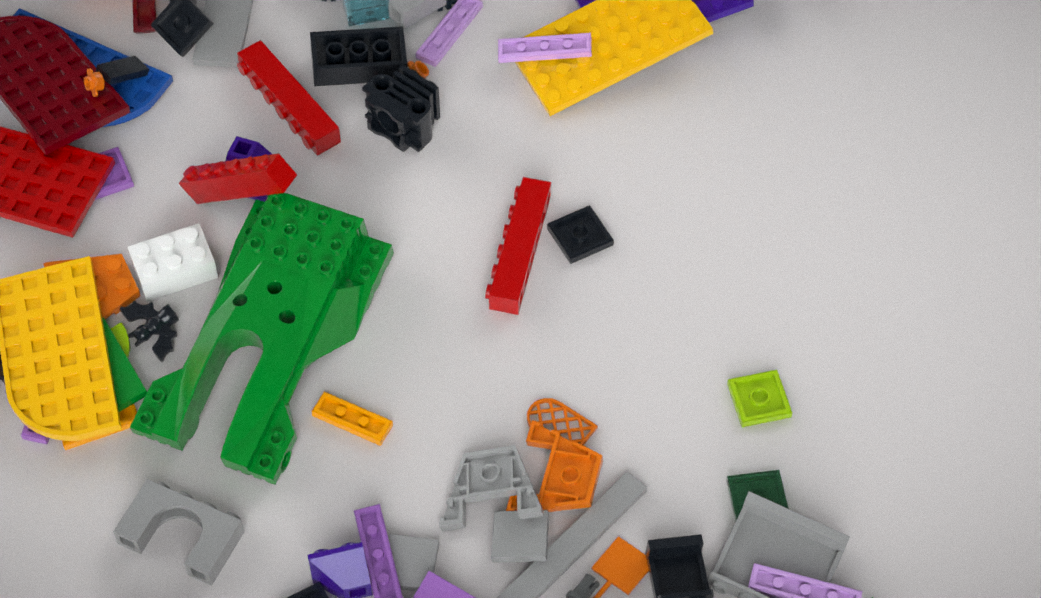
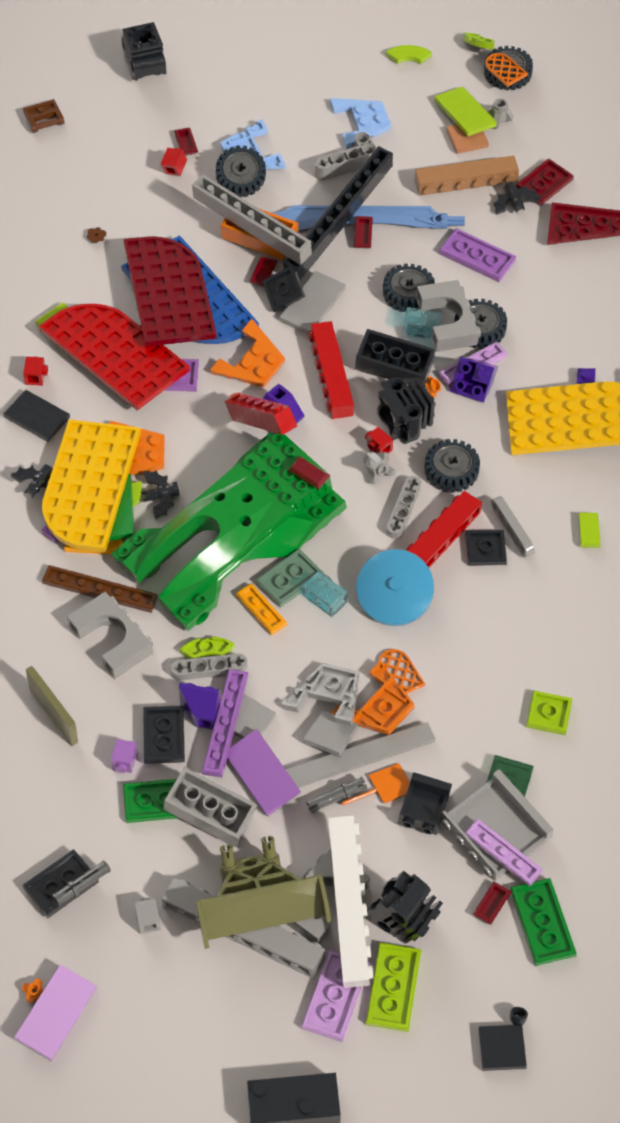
camera: 25 degrees right, 0 degrees up
(94, 82) = (200, 308): orange plate -> none
(122, 70) = (225, 306): black tile -> none
(132, 478) = (94, 587): none -> reddish brown tile
(173, 262) = (194, 454): white brick -> none
(195, 122) = (258, 363): none -> orange wing
(309, 495) = (206, 647): none -> lime tile
(322, 514) = (208, 663): none -> light grey beam
(338, 226) = (309, 472): none -> dark red tile
(367, 366) = (287, 577): none -> sand green tile
(390, 160) = (379, 441): none -> red brick
(403, 188) = (377, 465): none -> light grey rock
(422, 367) = (325, 593): none -> clear light blue brick
(459, 225) = (403, 507): none -> light grey beam
(461, 45) = (473, 378): none -> dark purple slope
(490, 154) = (452, 465): none -> wheel
(503, 324) = (395, 587): none -> dark azure dish
(544, 47) = (530, 404): lavender tile -> none
(599, 197) = (512, 526): none -> light grey beam
(686, 166) = (589, 530): none -> lime tile

